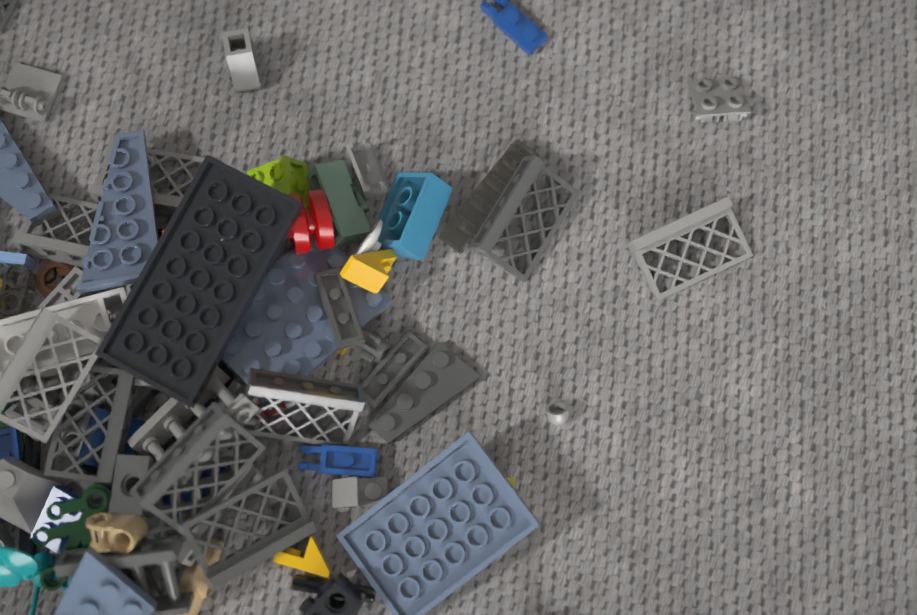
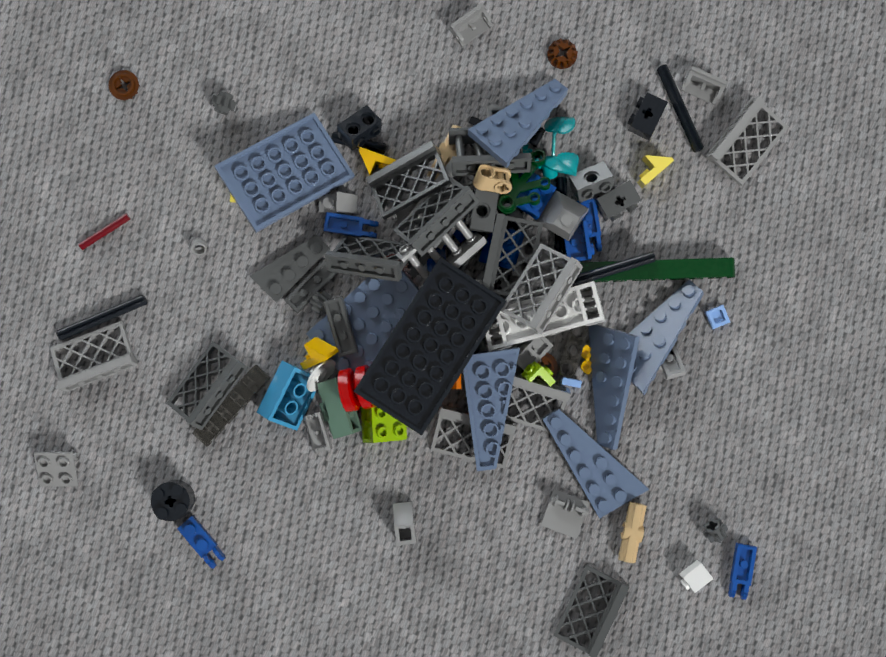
camera: 175 degrees left, 10 degrees up
(62, 265) = (535, 369): none -> lime bracket
(555, 67) = (168, 510): none -> black brick
(685, 303) = (101, 317): none -> black axle
(699, 426) = (104, 231): none -> dark red bar

